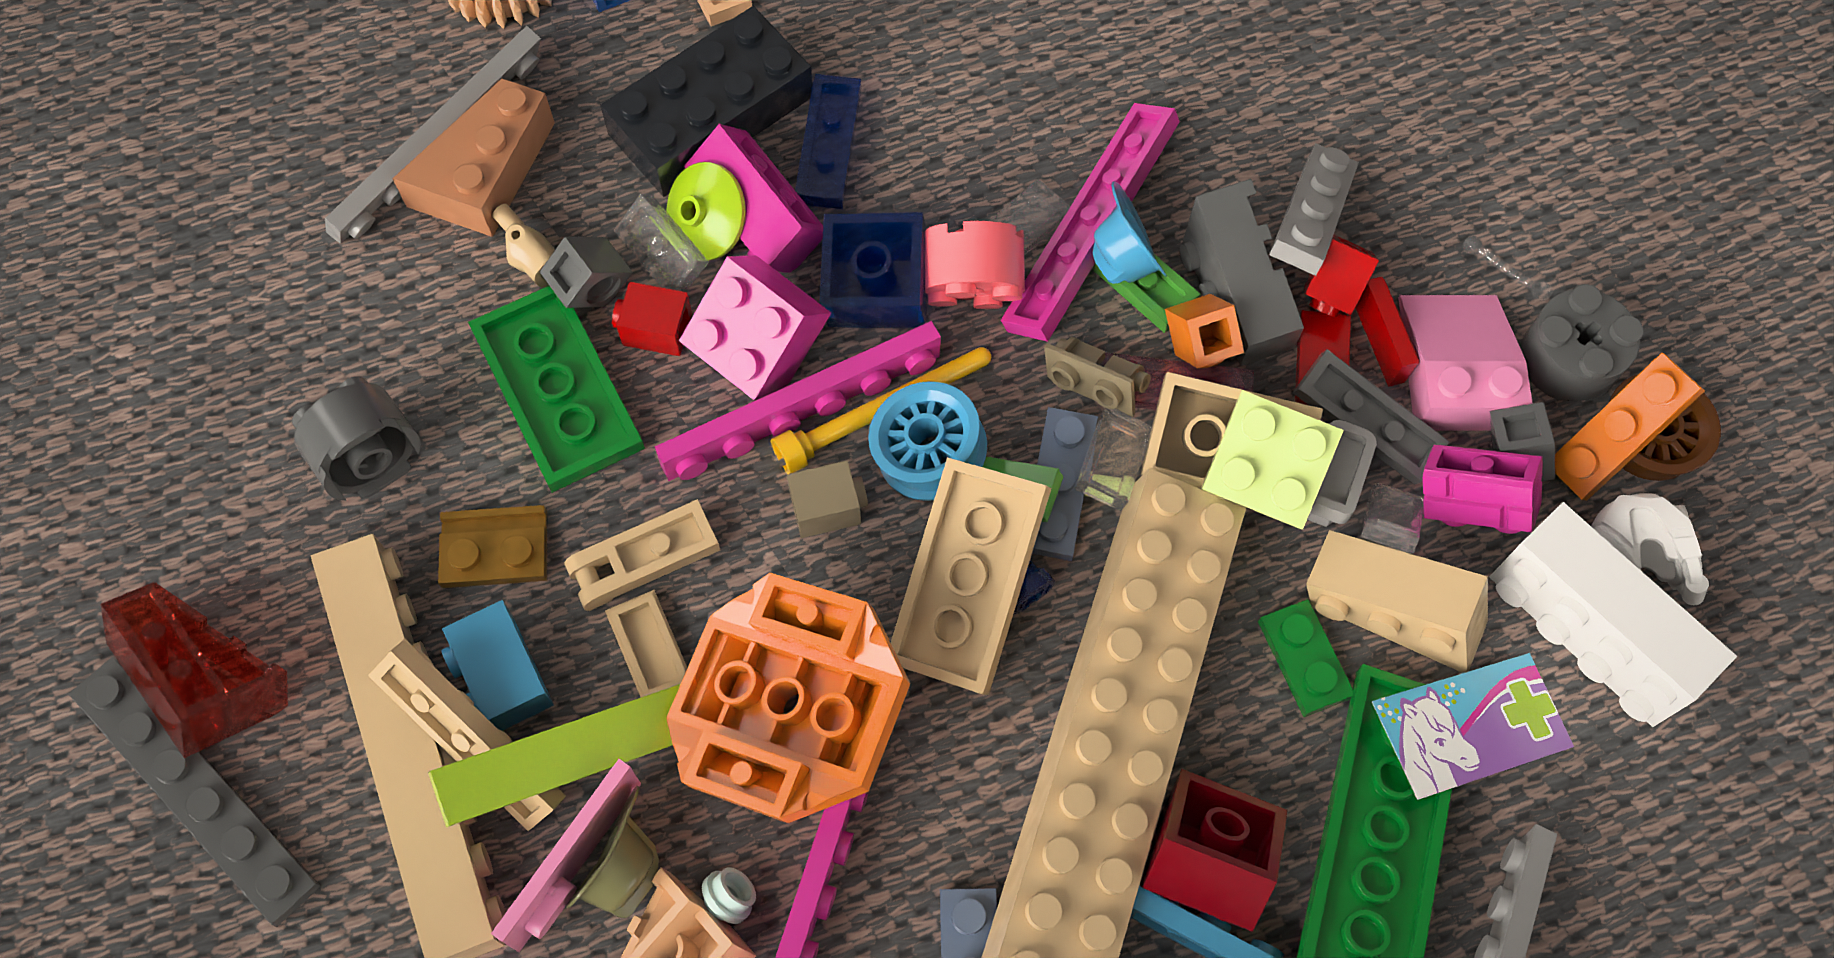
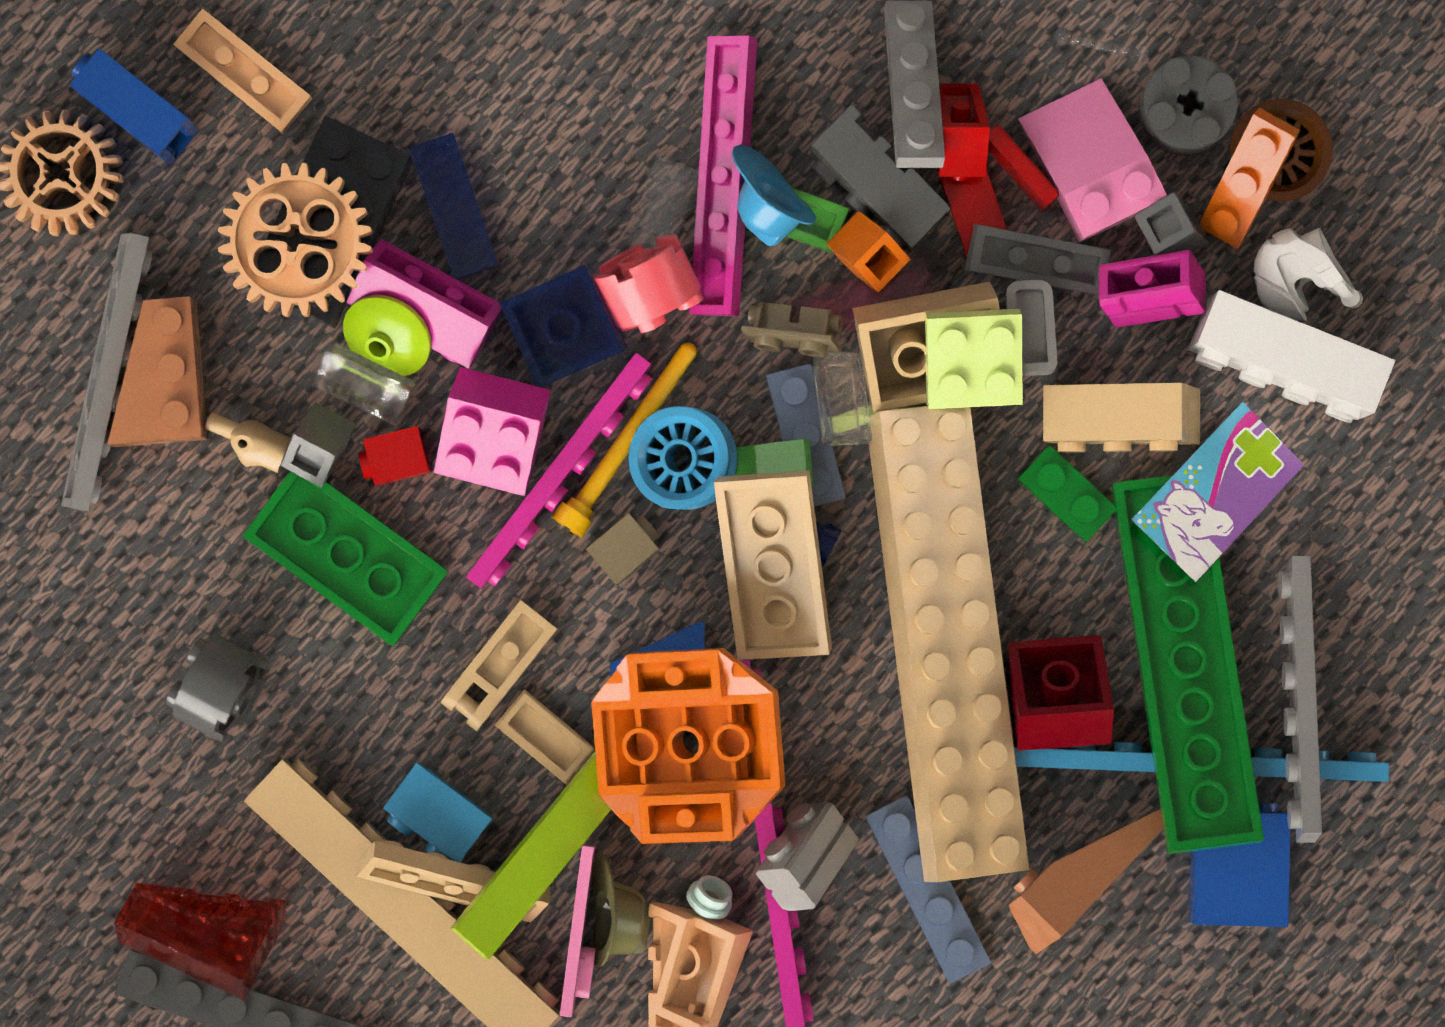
camera: 25 degrees left, 20 degrees up
(493, 546) = (373, 715): pearl gold plate -> none
(664, 74) = (302, 198): none -> light nougat gear
(853, 892) = (806, 855): none -> light grey brick
(1393, 518) = (1090, 347): clear tile -> none

